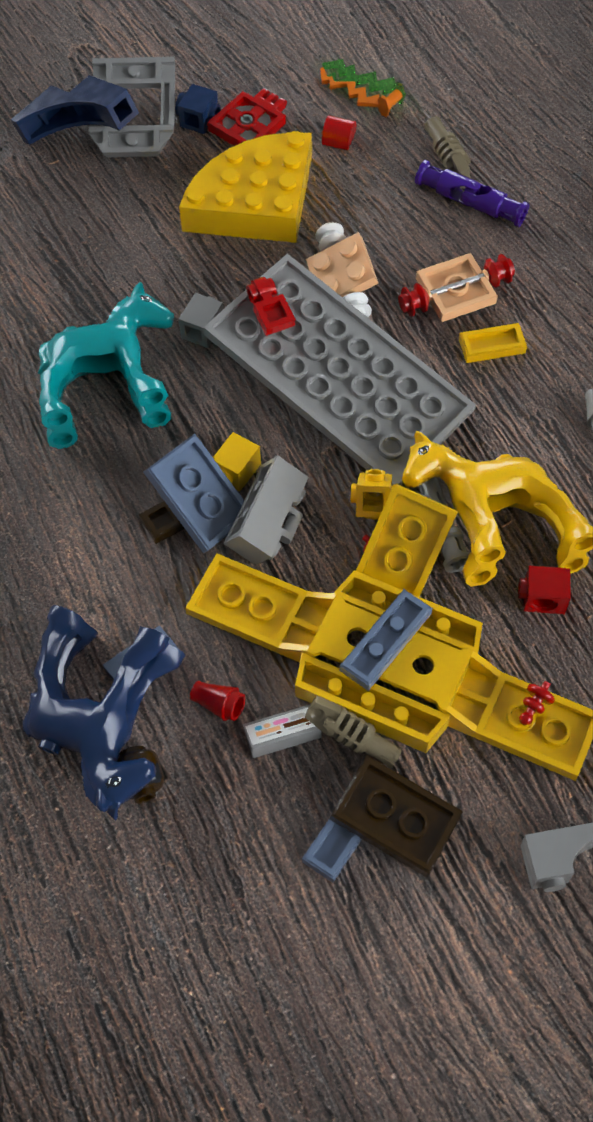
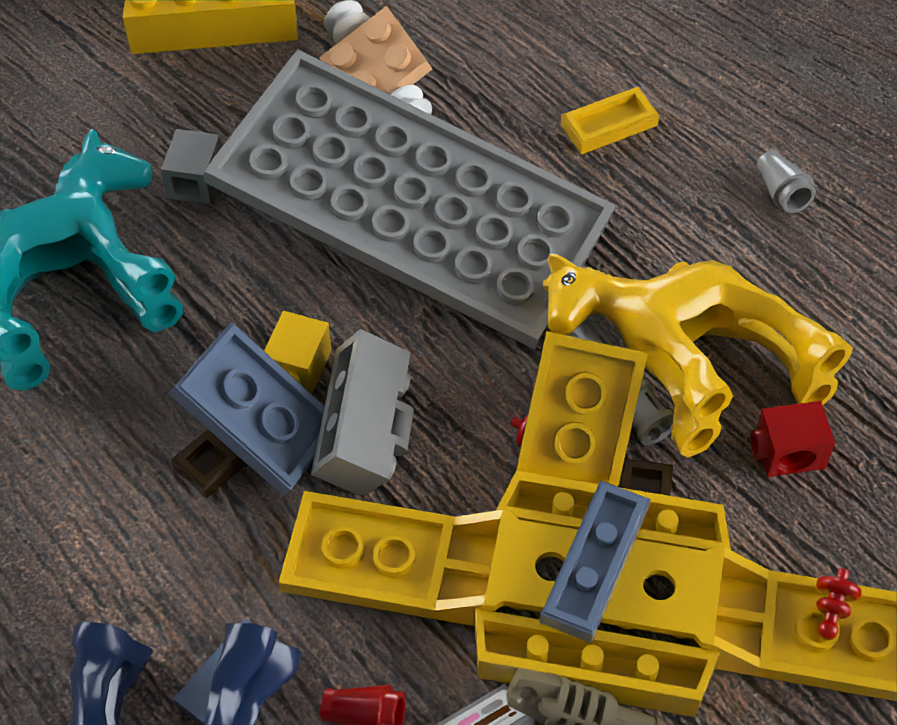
camera: 15 degrees left, 5 degrees down
(269, 309) = (295, 128): red plate -> none
(369, 503) = (511, 373): yellow brick -> none
(441, 593) = (646, 476): none -> dark brown tile
(456, 286) = (539, 55): light nougat plate -> none

